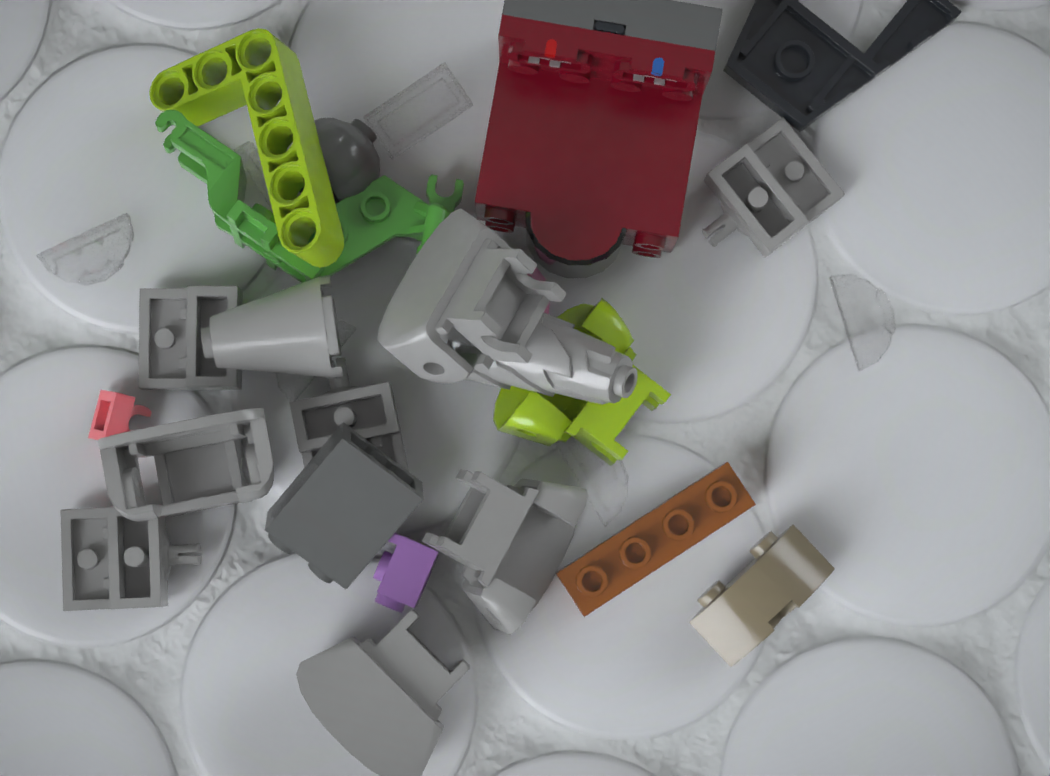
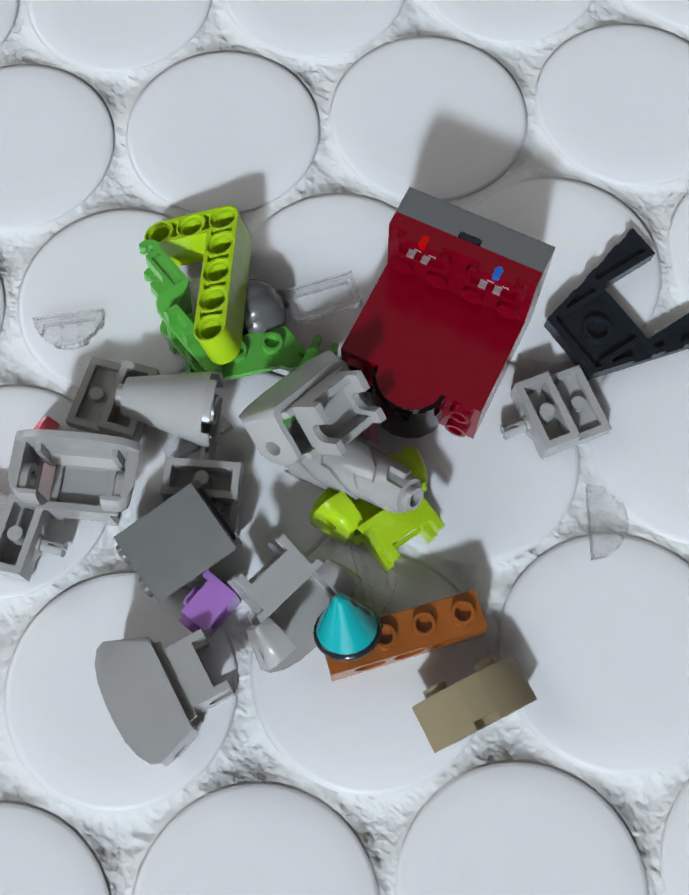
camera: 20 degrees right, 15 degrees down
(589, 560) = (347, 629): none -> teal hat

